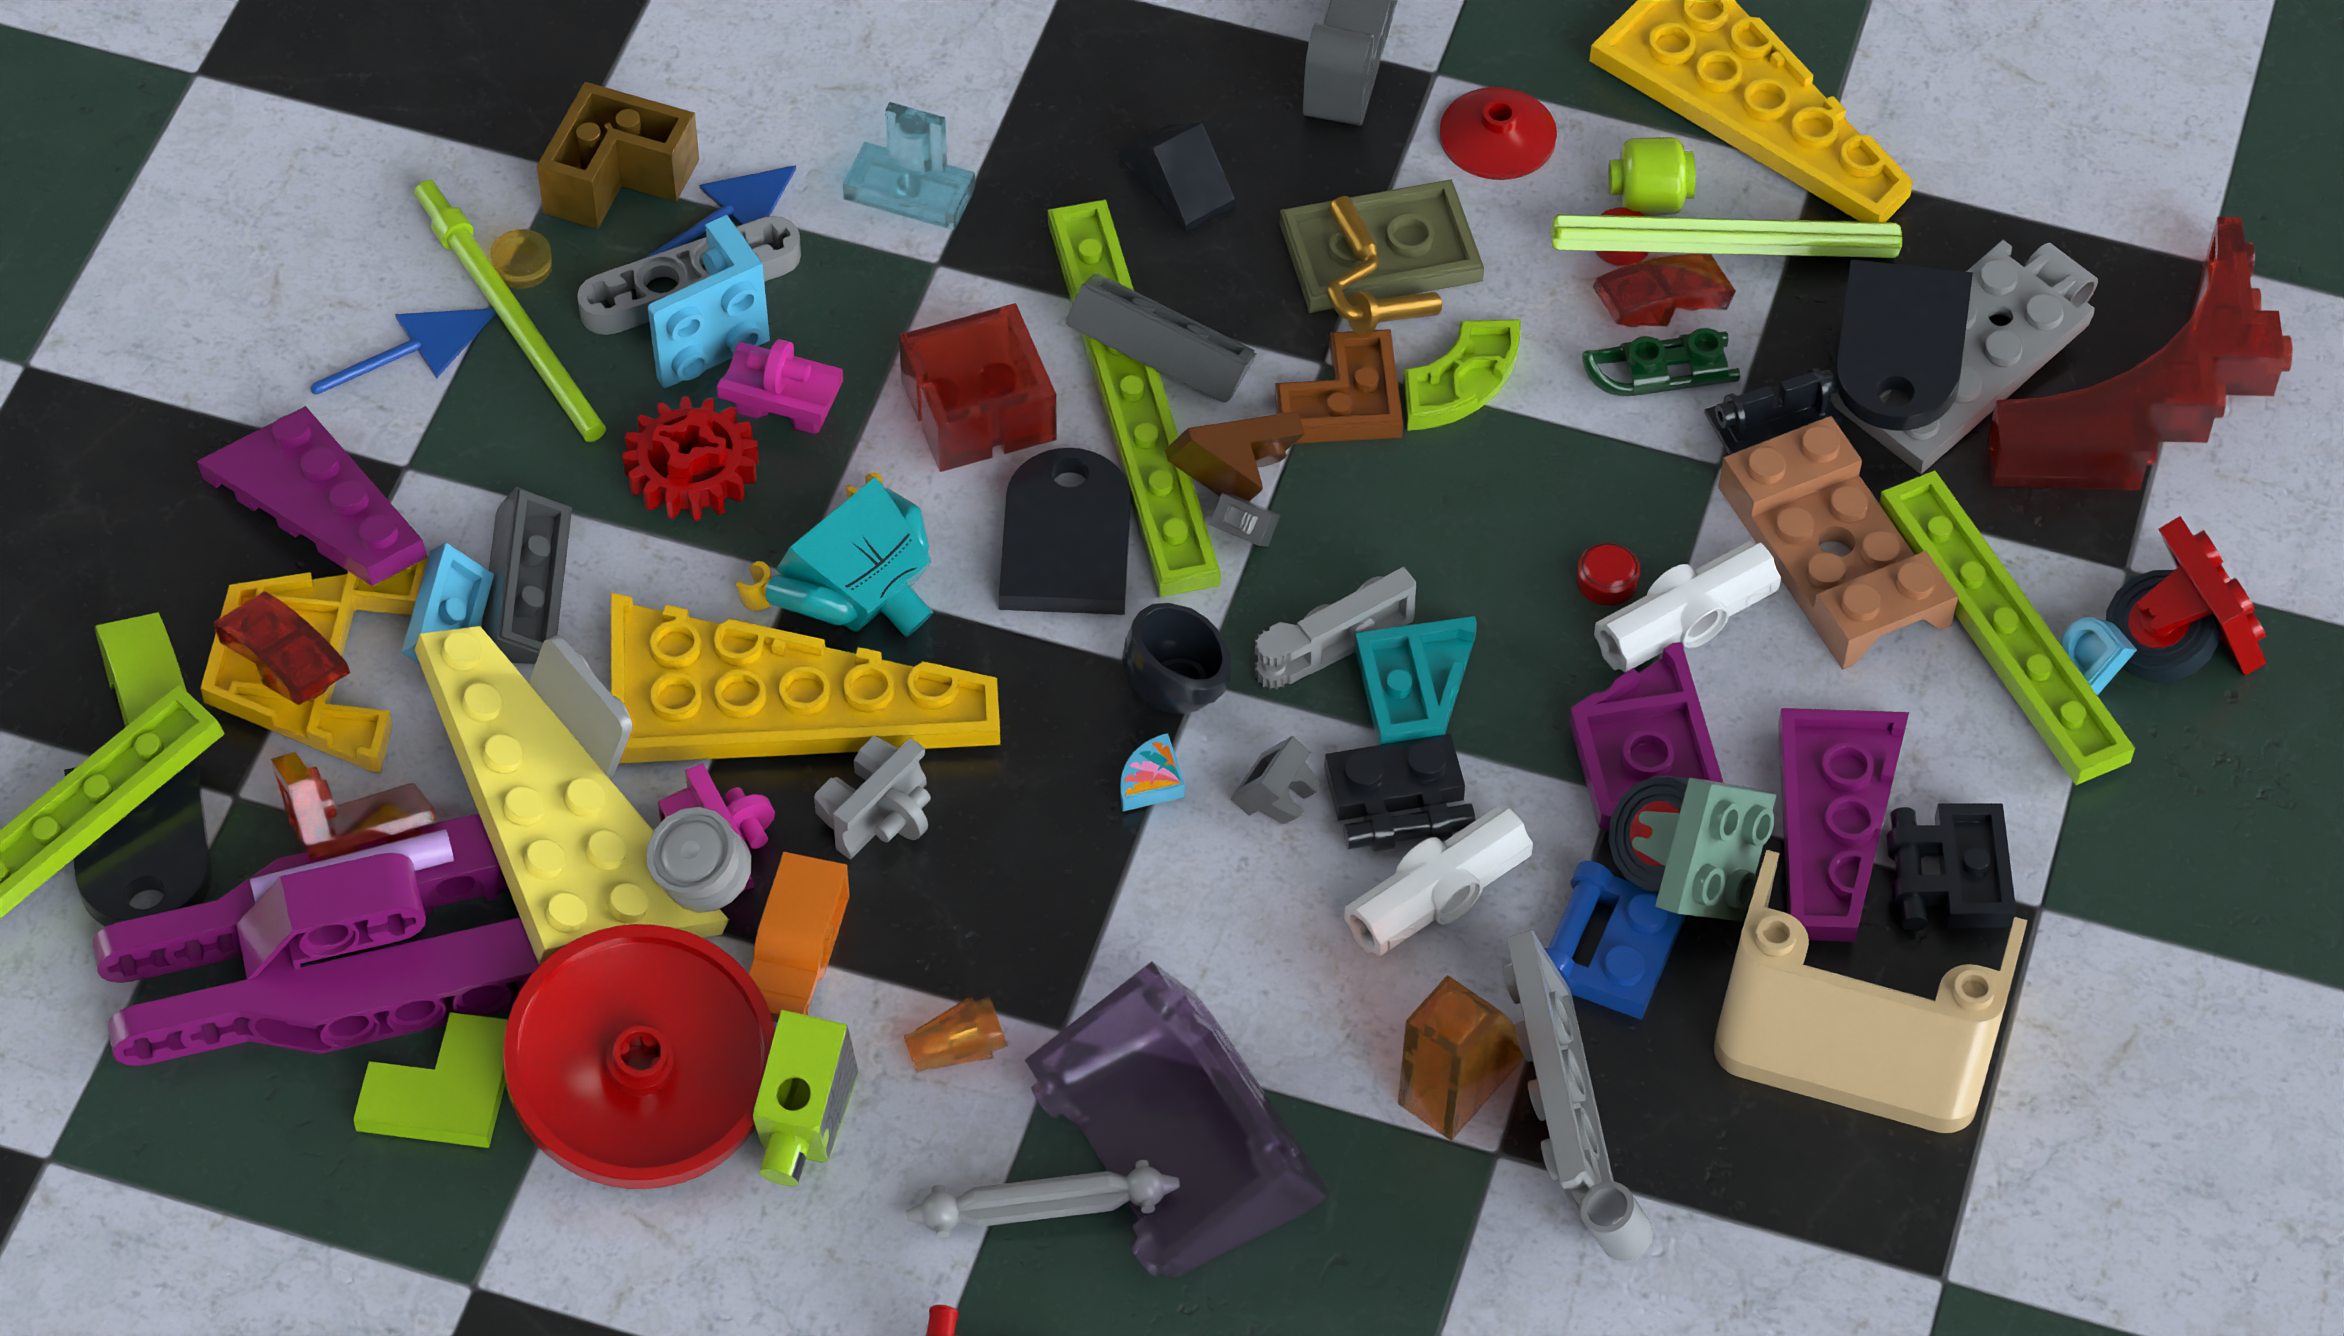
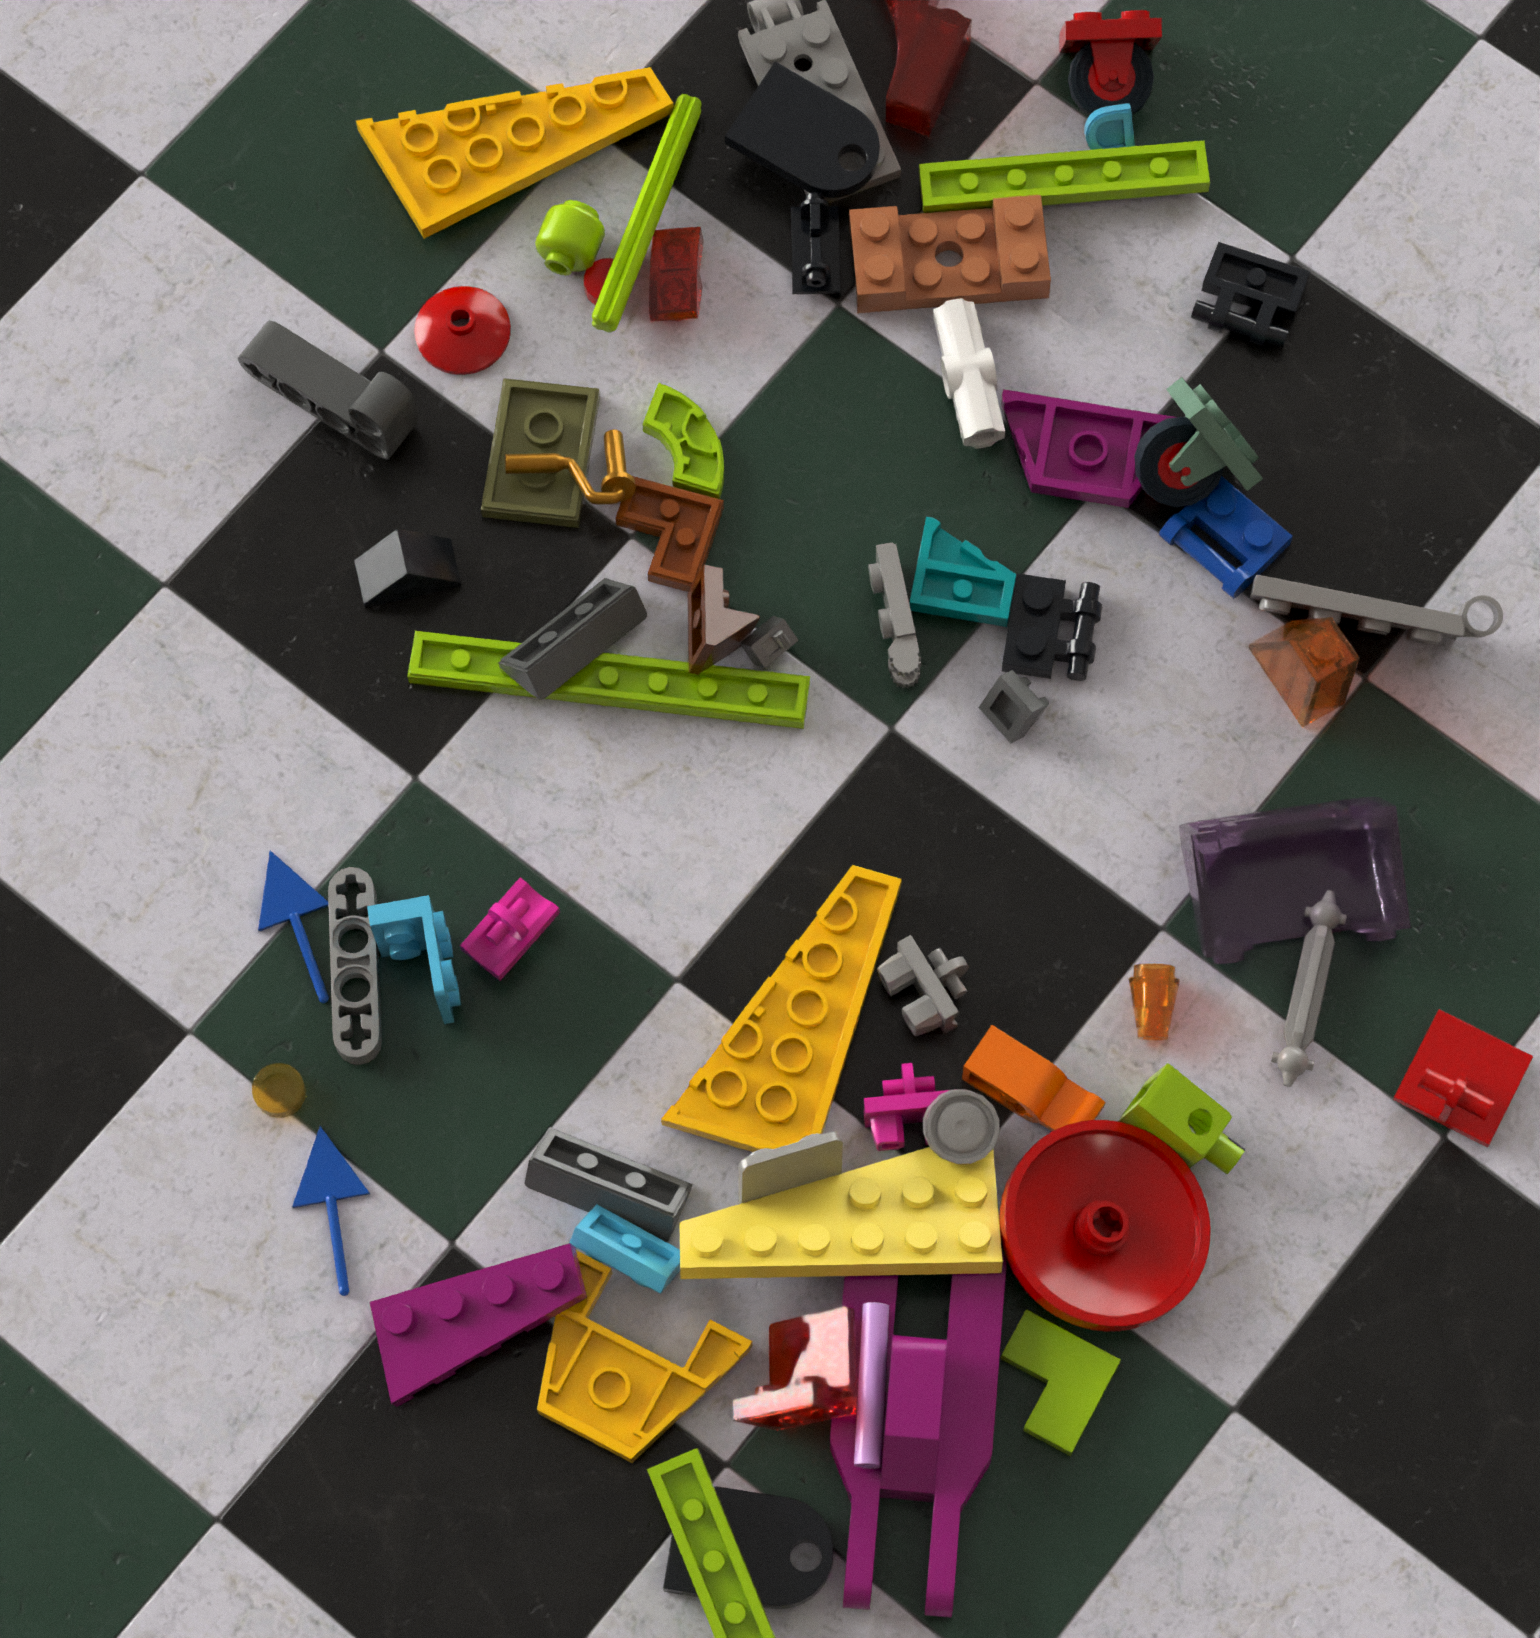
camera: 65 degrees left, 15 degrees up
(138, 662) = (595, 1499): lime slope -> none
(284, 647) = (633, 1380): clear red slope -> none
(456, 234) = (228, 1133): lime bar -> none
(613, 144) = (209, 979): pearl gold brick -> none
(690, 458) = (566, 1033): red gear -> none
(852, 564) = (706, 927): teal torso -> none
(911, 172) = (328, 765): clear light blue piece -> none
(978, 387) = (579, 783): clear red piece -> none
(1066, 543) = (729, 774): black tile -> none
(1151, 775) = (969, 789): tile -> none
(1175, 659) = (892, 733): black hat -> none
(1438, 881) = (1142, 628): white piece -> none
(1608, 574) = (910, 415): red piece -> none
(1649, 360) = (732, 311): dark green piece -> none
(1834, 804) = (1161, 344): magenta wing -> none
(1853, 1037) = (1347, 452): tan windscreen -> none

